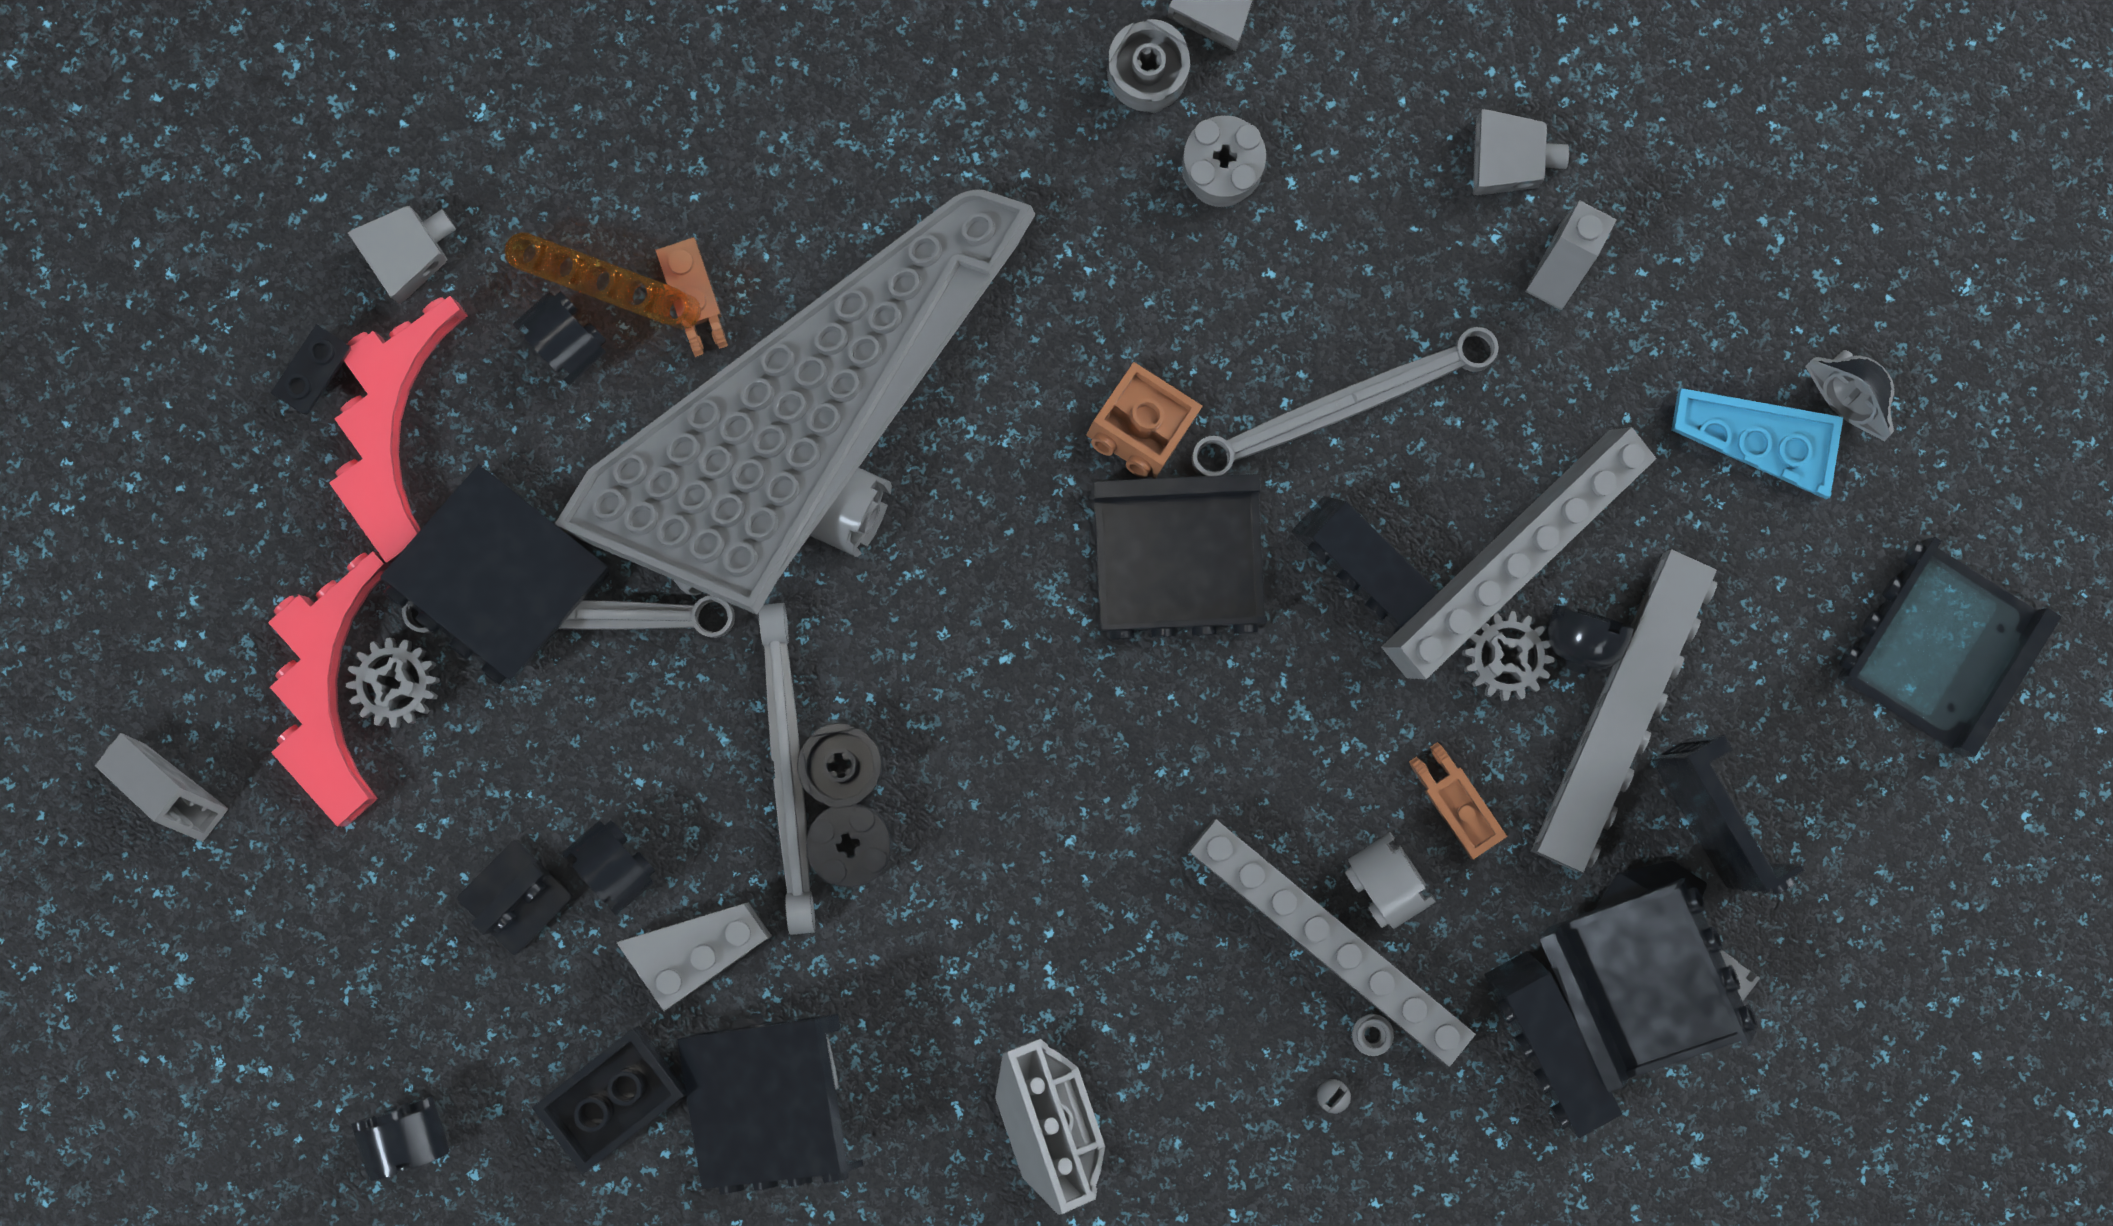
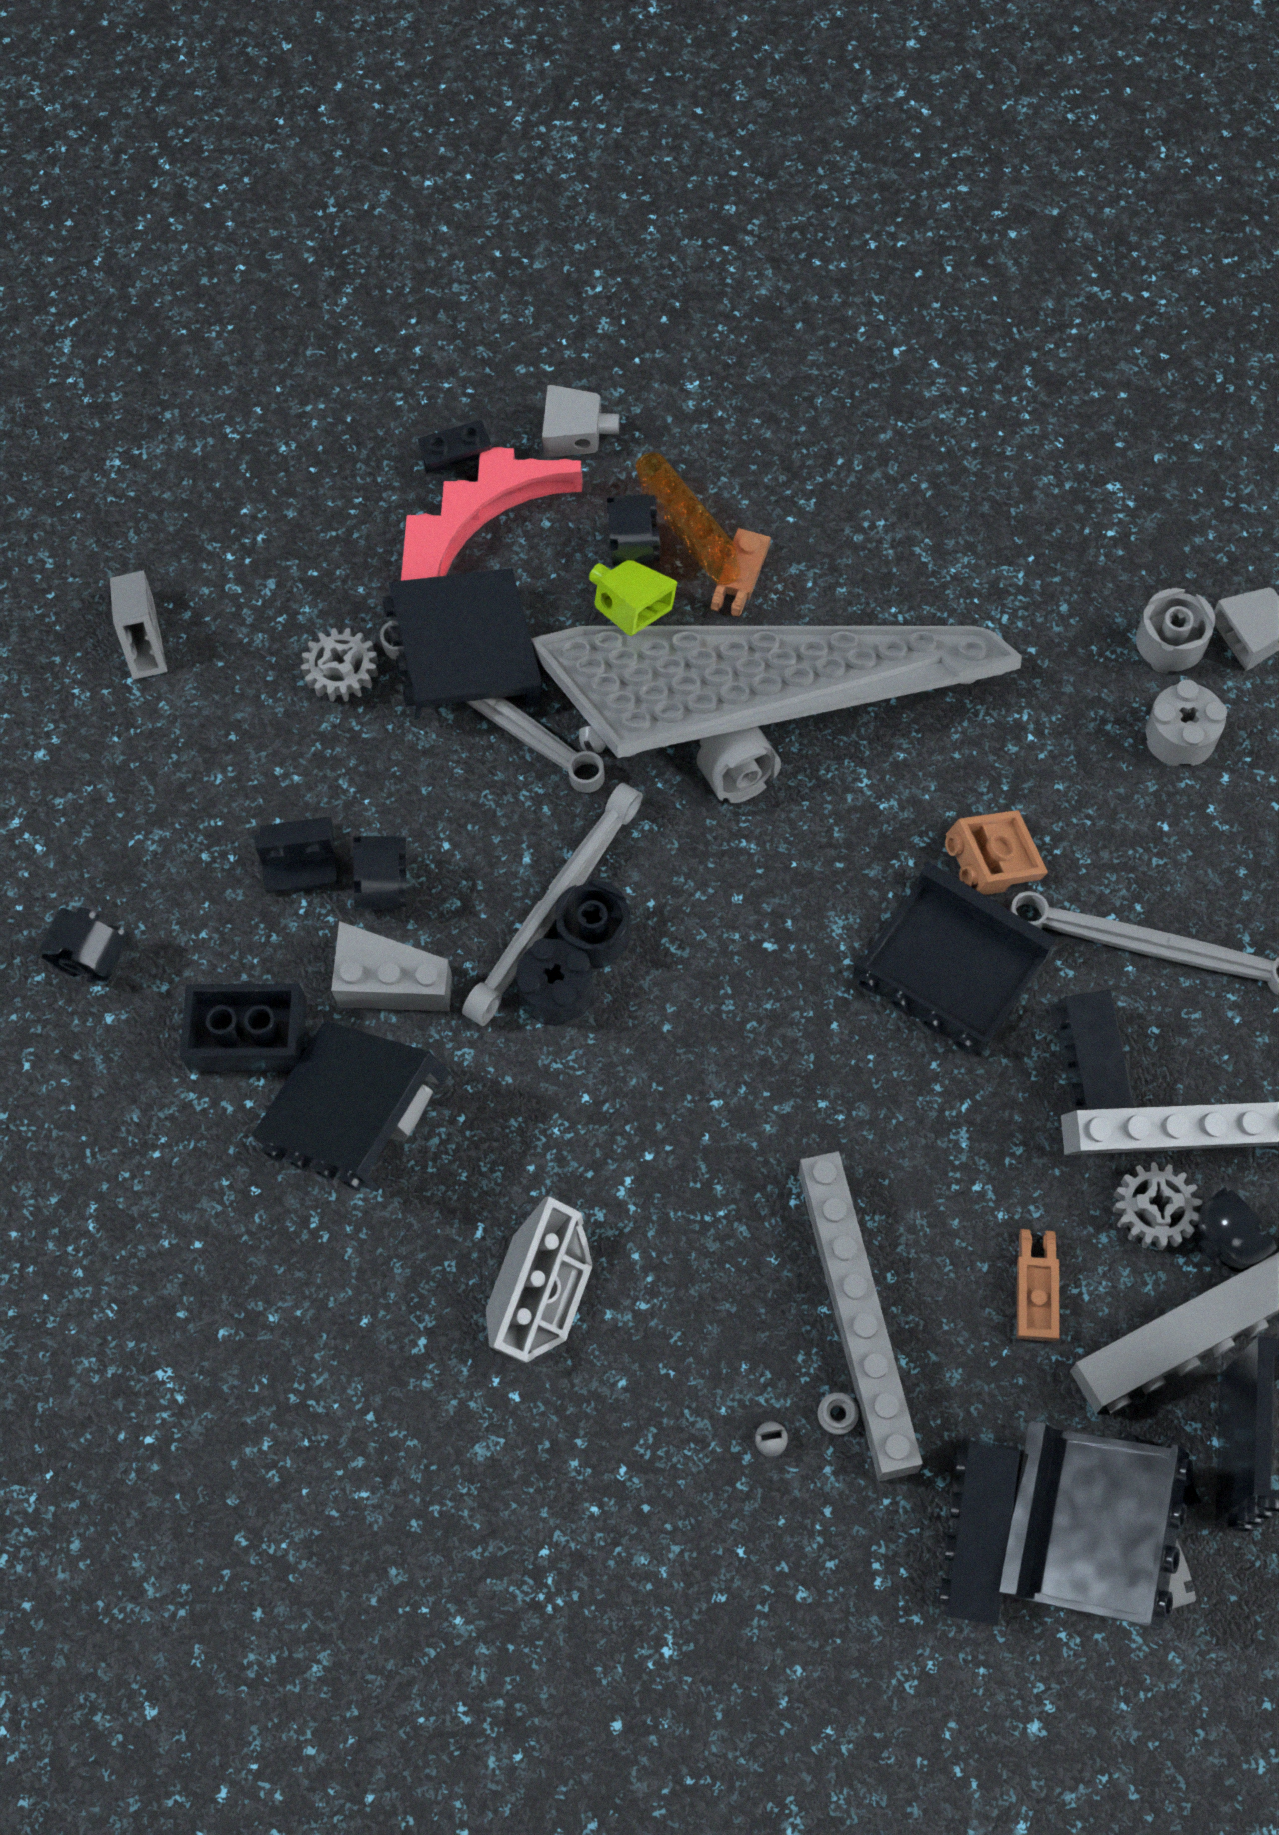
camera: 45 degrees right, 20 degrees down
(316, 633) = (285, 629): coral arch -> none
(613, 404) = (632, 594): none -> lime torso
(1389, 881) = (939, 1300): light grey brick -> none

